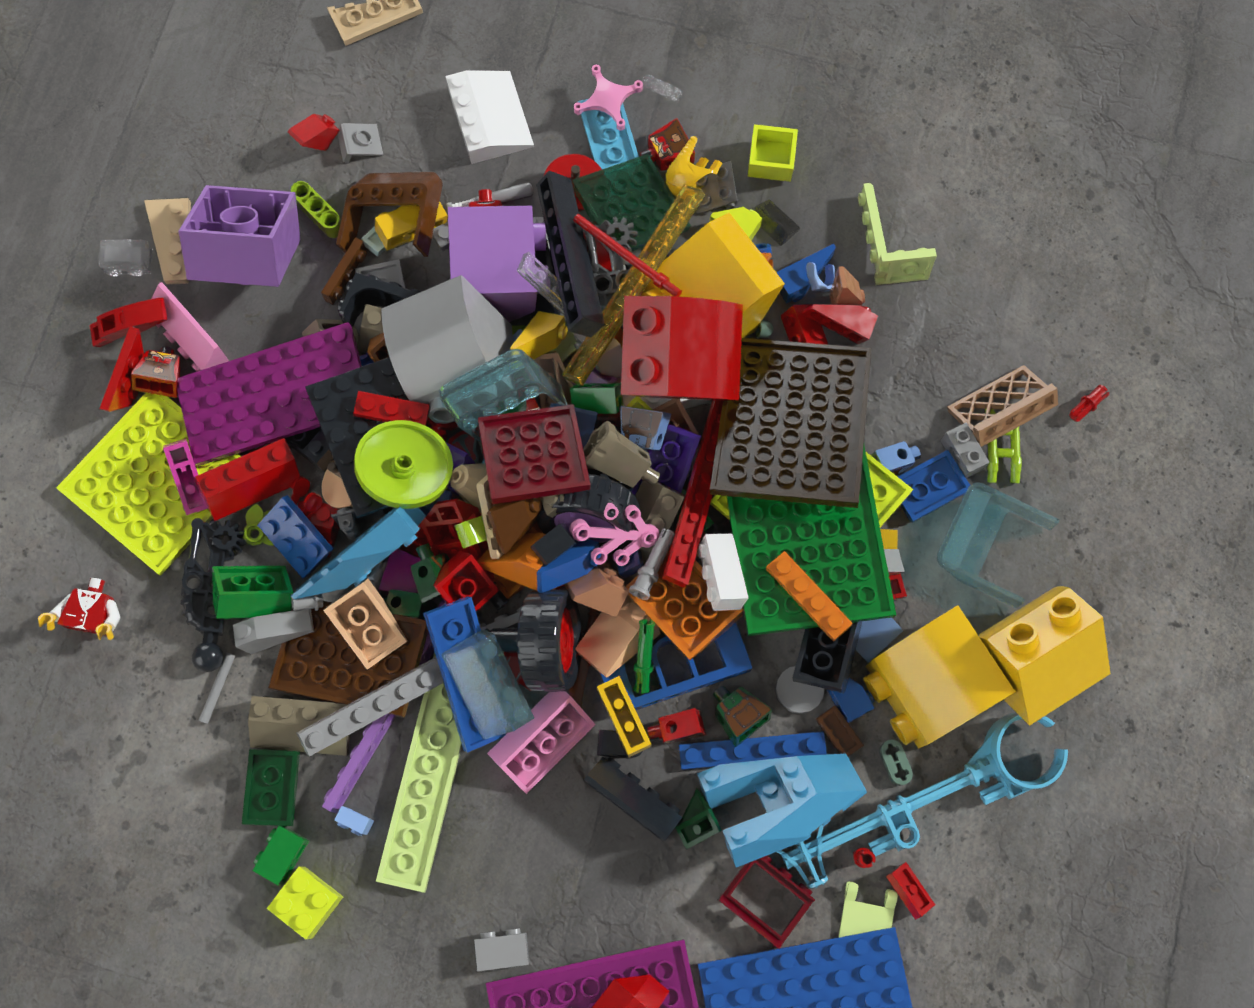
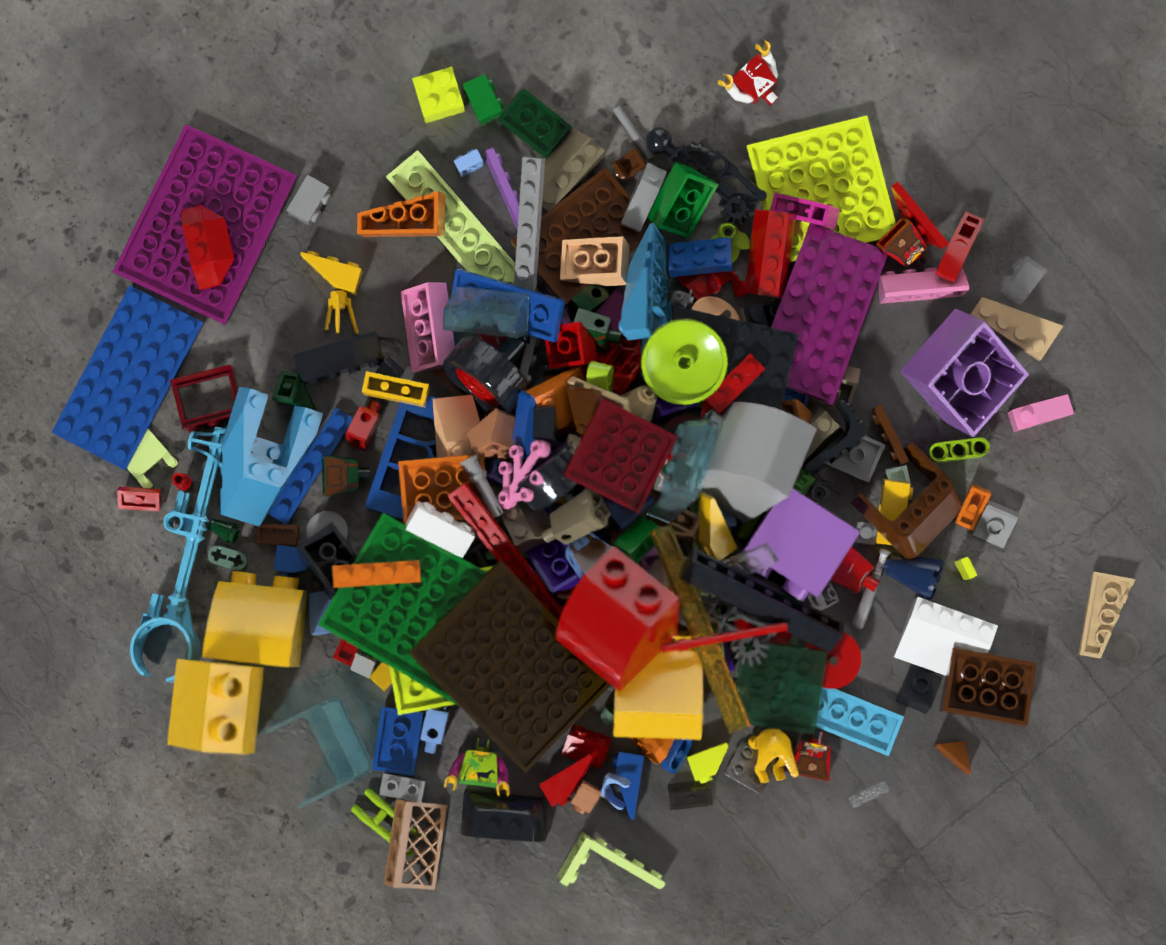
camera: 130 degrees right, 10 degrees up
(237, 168) = (1040, 412): none -> bright pink slope
(250, 667) = (629, 165): none -> reddish brown bracket
(309, 602) = (641, 231): light grey pin -> none
(315, 132) = (1023, 490): red slope -> none
(354, 168) = (973, 506): none -> orange slope
(415, 132) = (965, 568): none -> neon yellow tile
(448, 832) = (405, 219): none -> orange wedge
(451, 166) = (916, 574): none -> dark blue cone
(504, 52) = (988, 687): none -> reddish brown slope
(545, 107) = (919, 689): none -> black piece
(554, 863) = (339, 275): none -> yellow slope
(576, 45) = (956, 753): none -> dark orange slope
(579, 844) = (338, 302): none -> yellow plant
(608, 97) = (885, 739): bright pink piece -> none
(644, 654) = (421, 430): green pin -> none
(772, 153) = (744, 833): neon yellow piece -> none
(874, 783) = (225, 530): none -> dark green cone
(895, 399) = (479, 768): none -> torso
(920, 351) = (504, 817): none -> black windscreen
(1089, 403) = (369, 912): red axle -> none

